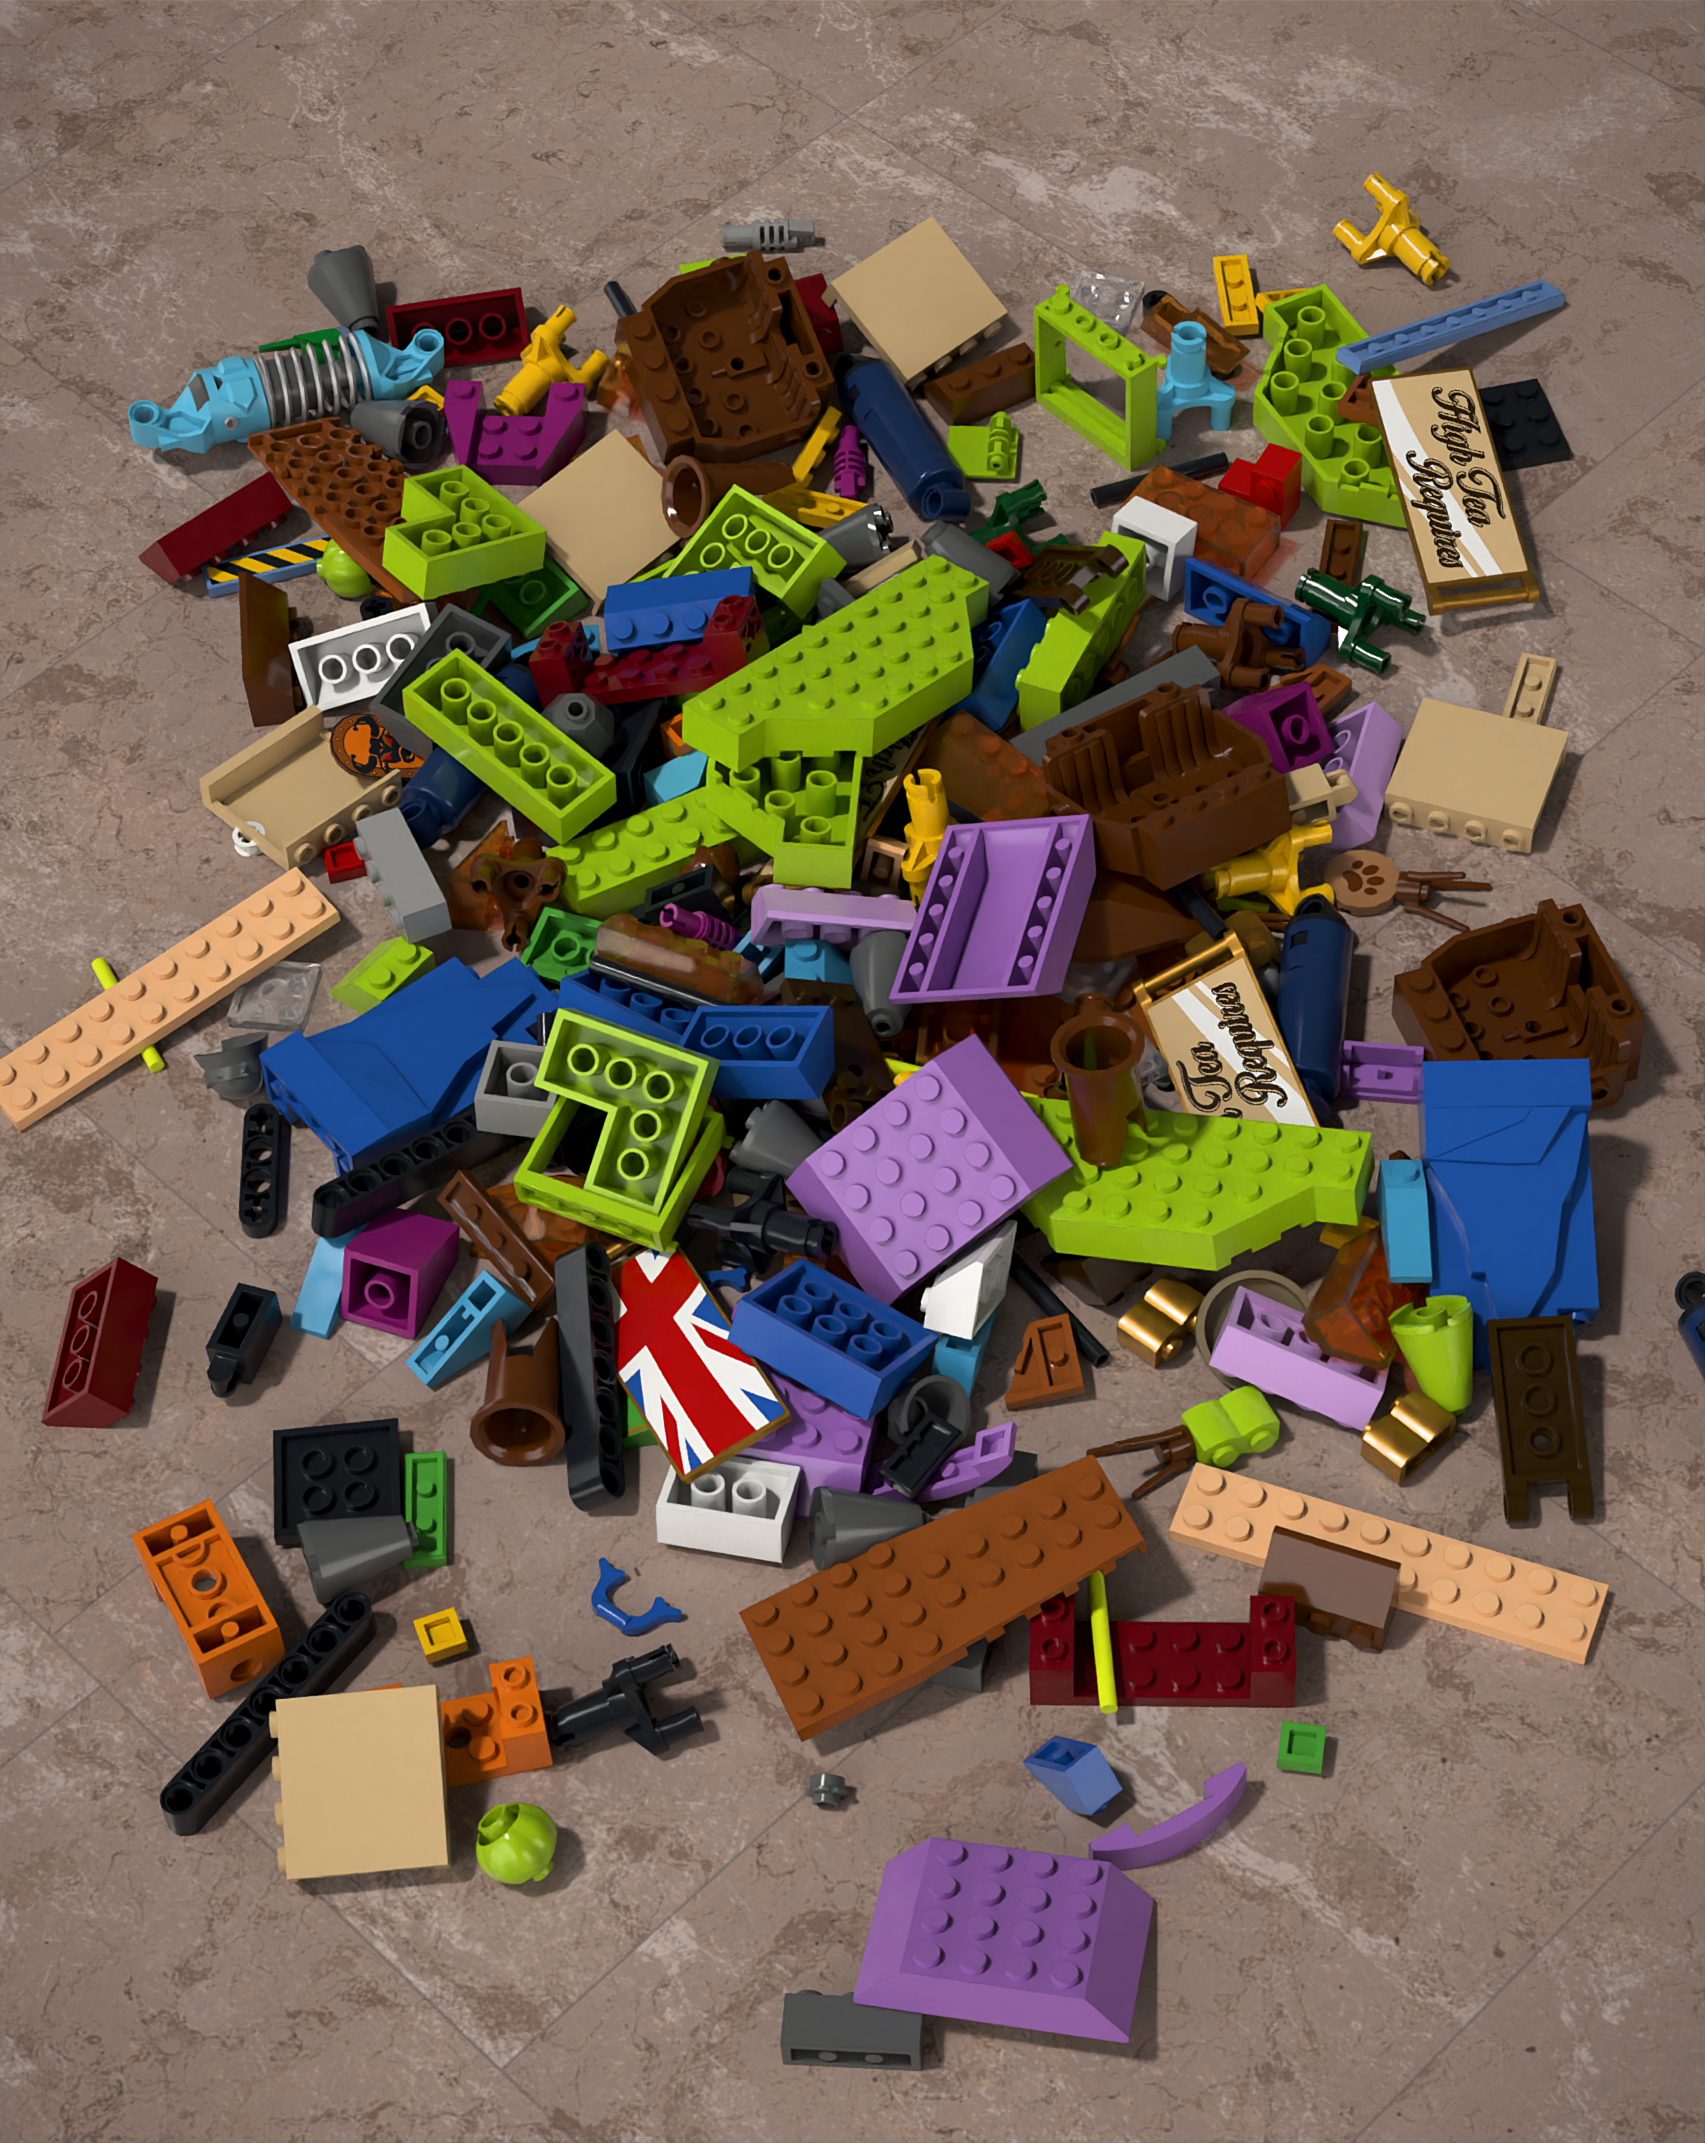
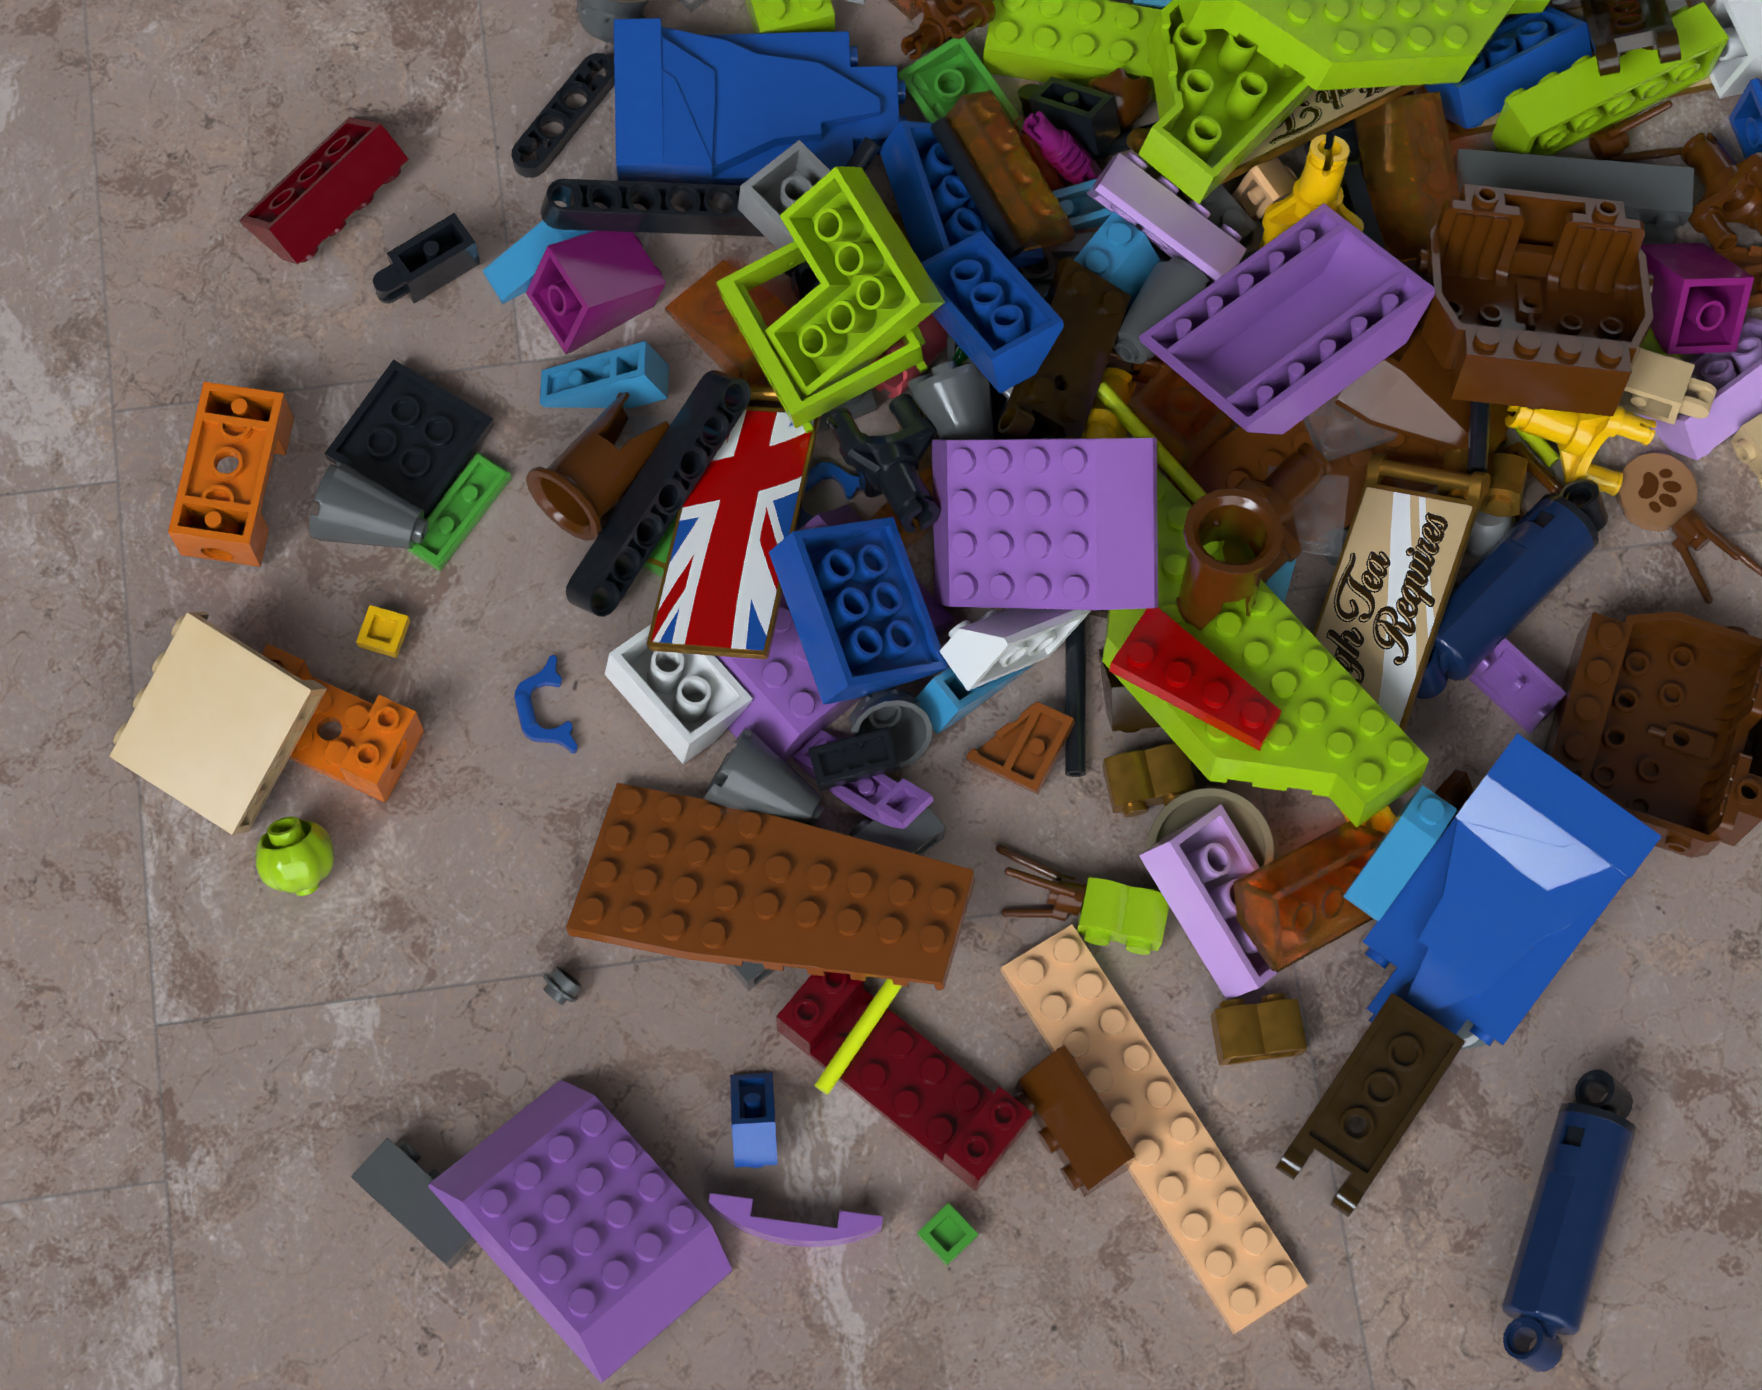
camera: 30 degrees right, 20 degrees up
(250, 1724) = (190, 596): black beam -> none
(499, 1239) = (686, 316): reddish brown tile -> none
(625, 1706) = (467, 800): black wheel -> none
(1138, 1195) = (1189, 676): none -> red wing
(1439, 1348) = (1338, 979): lime cone -> none

